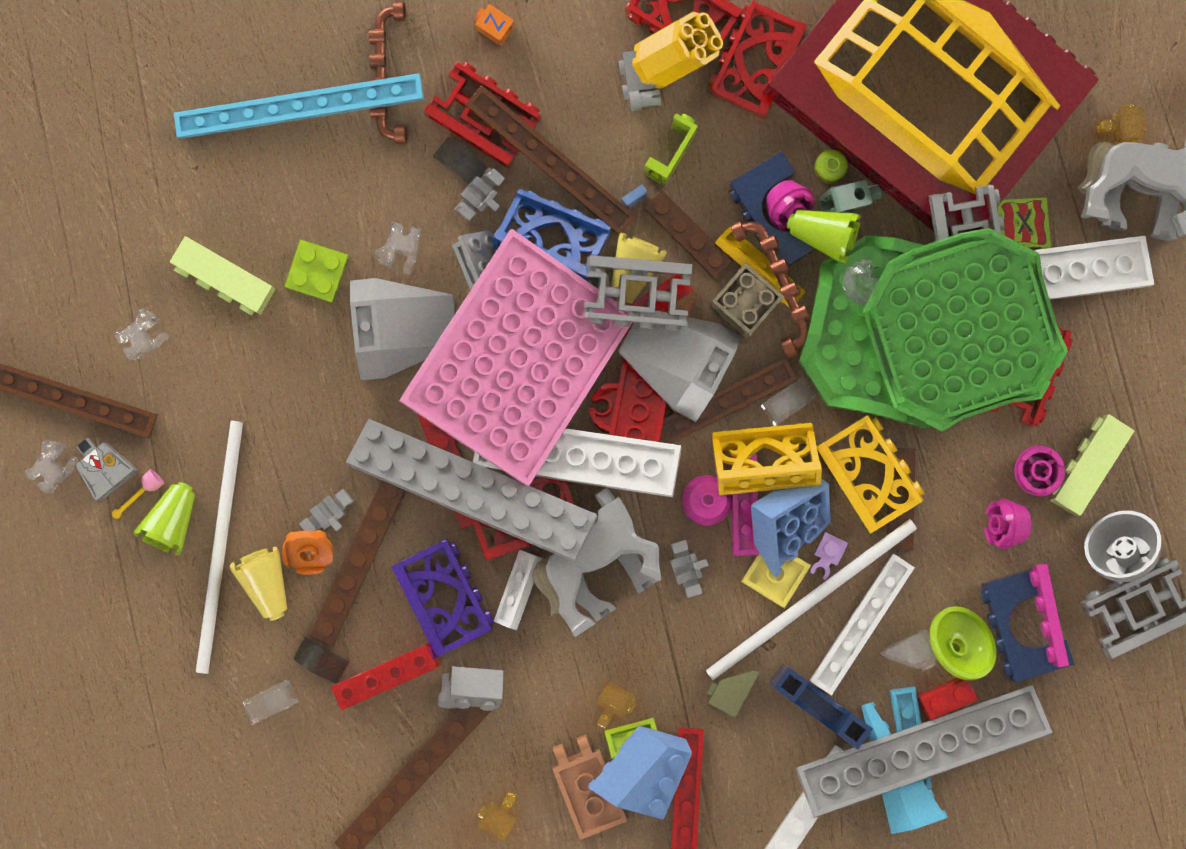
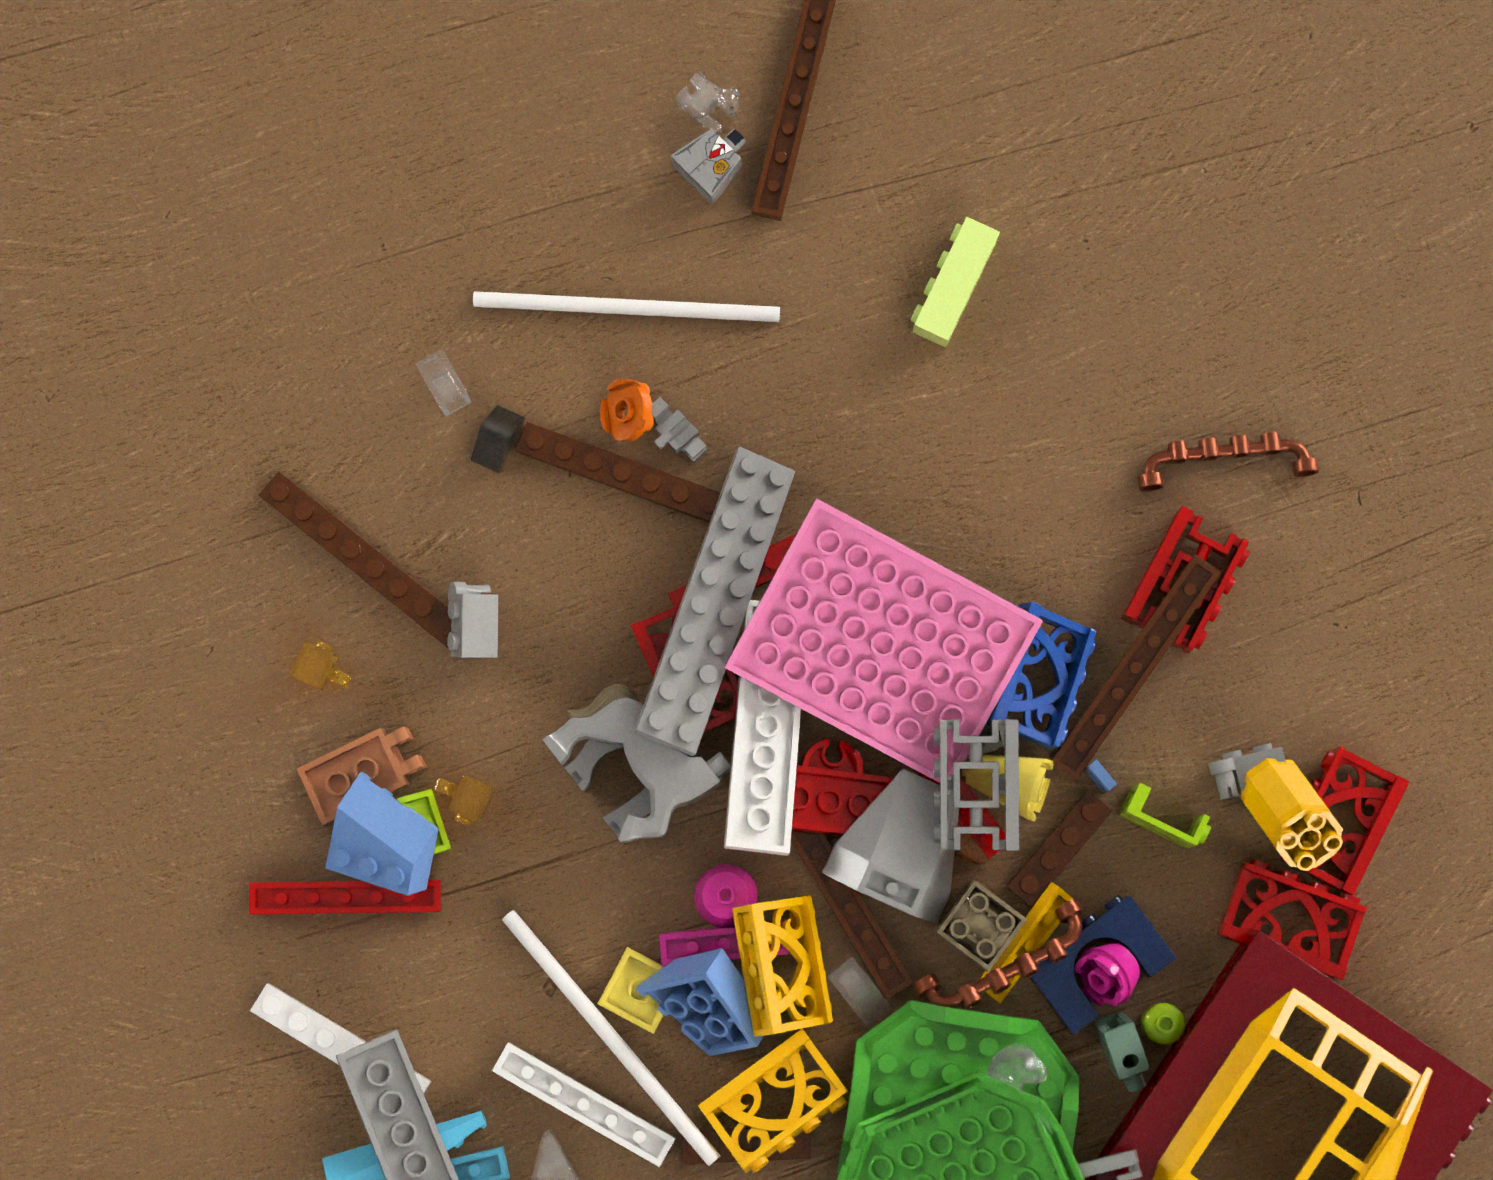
camera: 90 degrees right, 5 degrees down
(138, 336) = (873, 189): clear animal -> none
(150, 481) = (698, 219): hinge -> none
(169, 519) = (655, 243): lime cone -> none
(263, 581) = (587, 360): light yellow cone -> none
(299, 106) = (1173, 356): medium azure plate -> none
(316, 271) = (971, 394): lime plate -> none
(385, 676) = (481, 515): red fence -> none
(395, 325) = (913, 491): light grey wedge -> none
(401, 244) = (1015, 486): clear animal -> none
(437, 632) = (557, 558): dark purple fence -> none
(459, 160) = (1124, 557): clear smoke slope -> none
(474, 254) = (1011, 581): light grey bracket -> none
(479, 194) = (1085, 583): light grey piece -> none
(494, 24) = (1300, 585): orange brick -> none
(517, 590) = (596, 668): white plate -> none
(687, 568) = (638, 877): light grey piece -> none
(731, 691) = (488, 943): olive slope -> none
(820, 706) = (459, 1084): dark blue arch -> none
(826, 231) = (1077, 1021): lime cone -> none
(829, 551) = (672, 1056): lavender plate -> none

